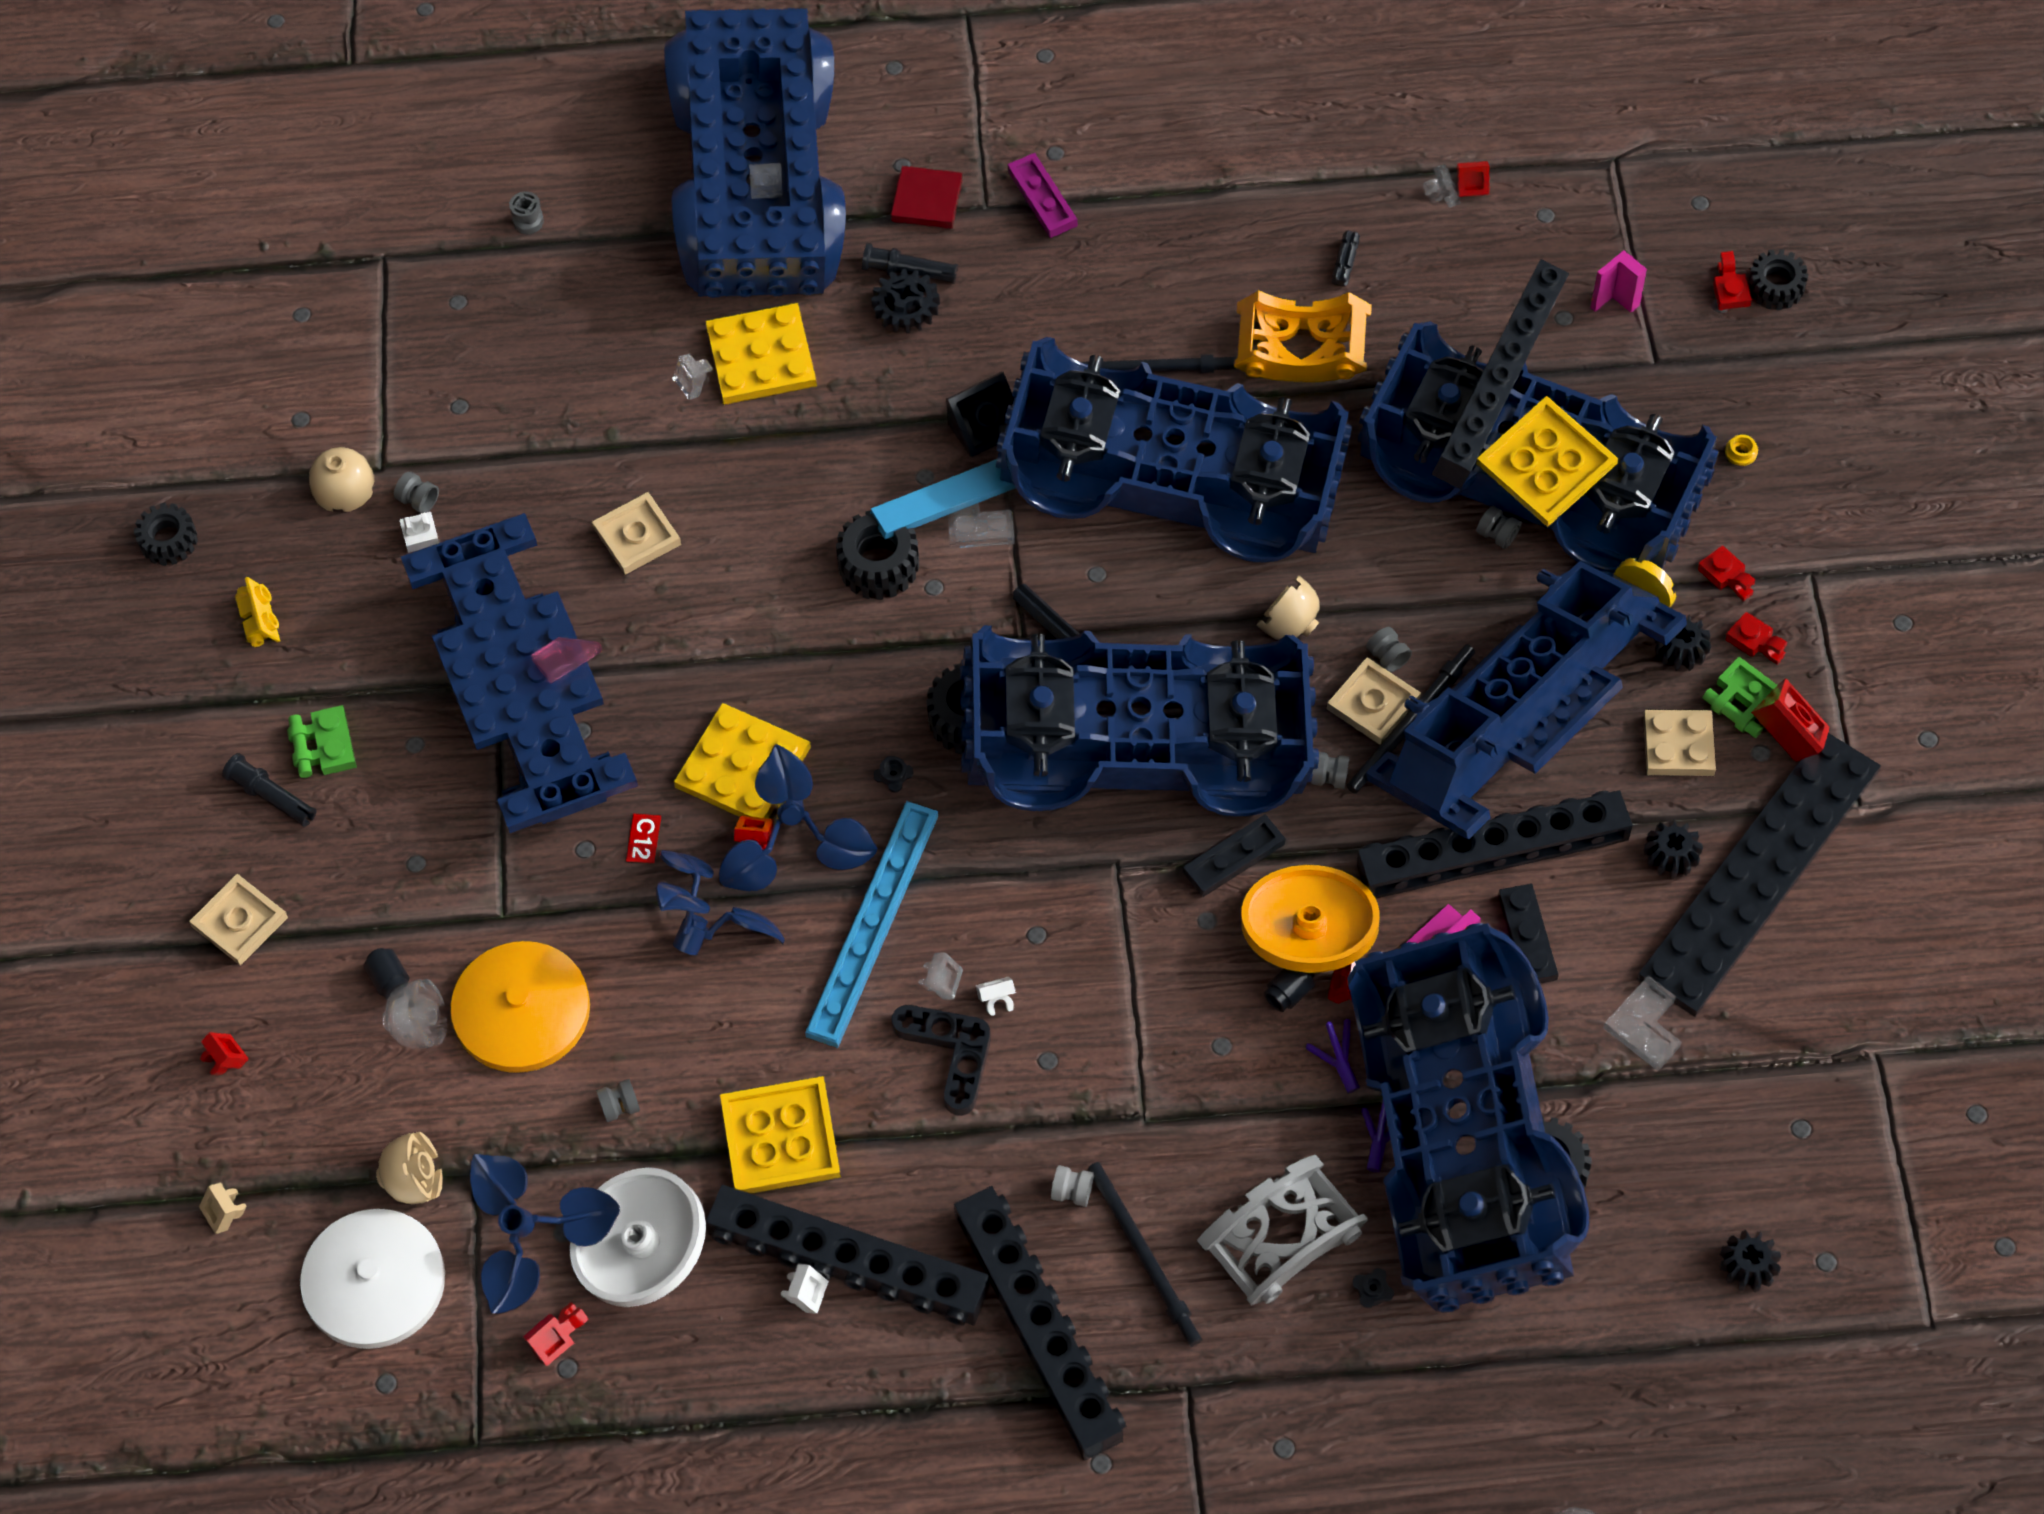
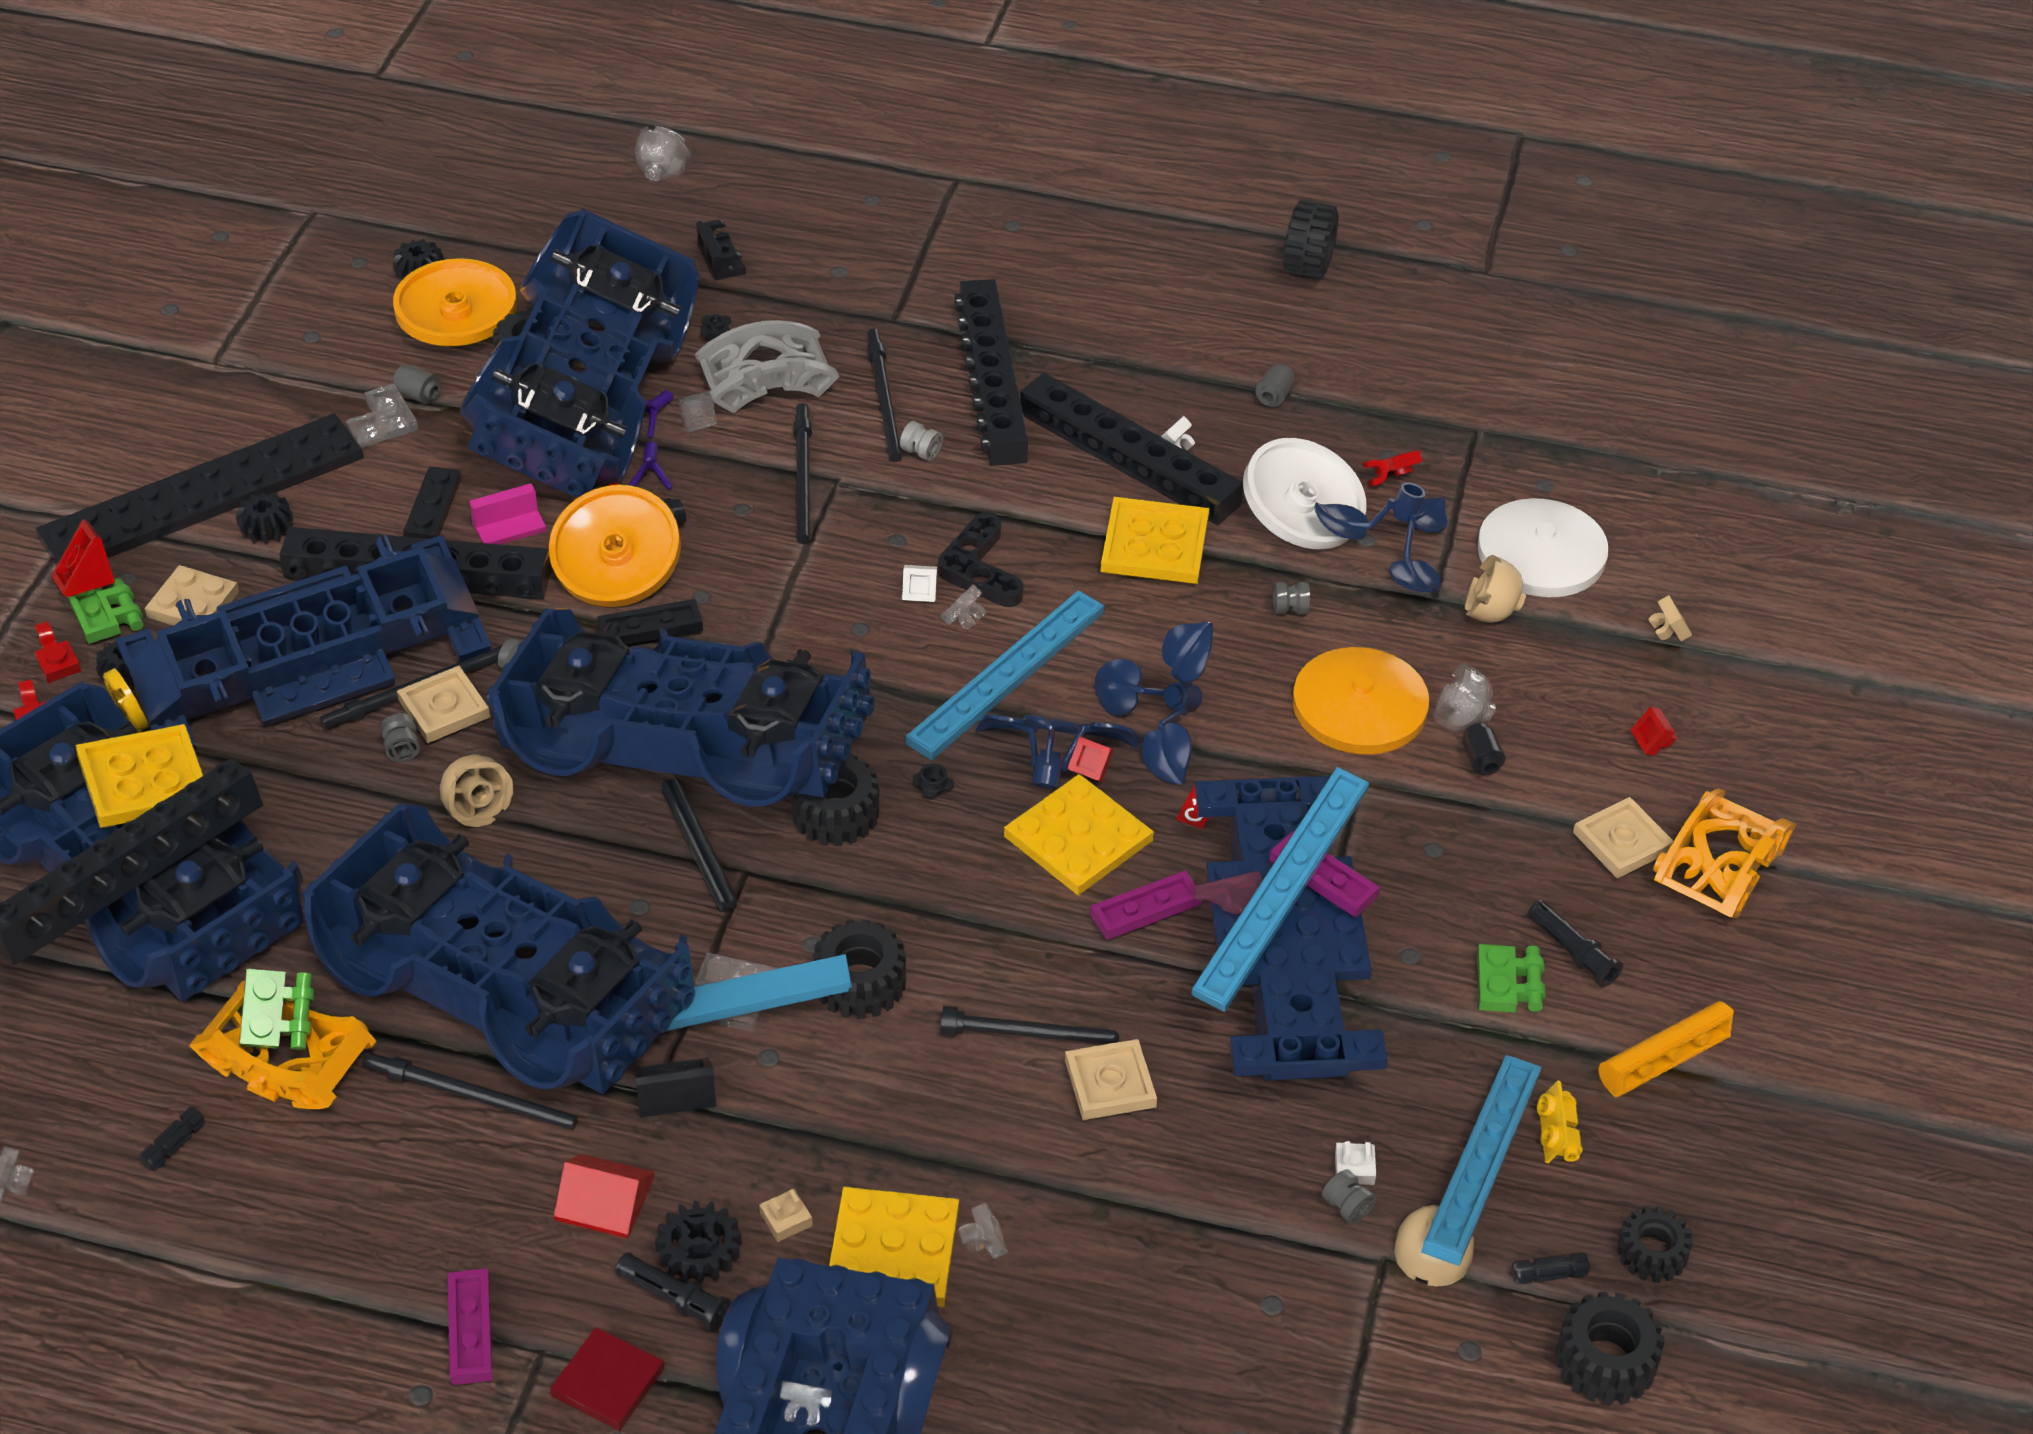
camera: 165 degrees left, 15 degrees down
(138, 875) = (1733, 887): none -> light orange fence
(173, 709) = (1667, 1049): none -> light orange brick
(185, 410) = (1605, 1374): none -> black tyre
(247, 493) = (1550, 1268): none -> black axle
(311, 540) = (1481, 1161): none -> dark azure tile
(490, 693) = (1338, 882): none -> magenta plate
(520, 659) = (1280, 890): none -> dark azure tile
(657, 704) = (1144, 905): none -> magenta plate
(716, 1414) = (1275, 385): none -> dark grey brick
(780, 543) = (956, 1021): none -> black piece
(852, 350) = (785, 1215): none -> tan tile
(997, 325) = (602, 1194): none -> slope
(1206, 1165) = (802, 432): none -> black bar
(1325, 336) = (263, 1009): none -> plate
(1327, 1145) = (697, 411): none -> clear tile
(1428, 1412) = (718, 251): none -> black hinge
(1637, 1078) = (417, 383): none -> dark grey brick
(1666, 1200) = (454, 301): none -> light orange dish

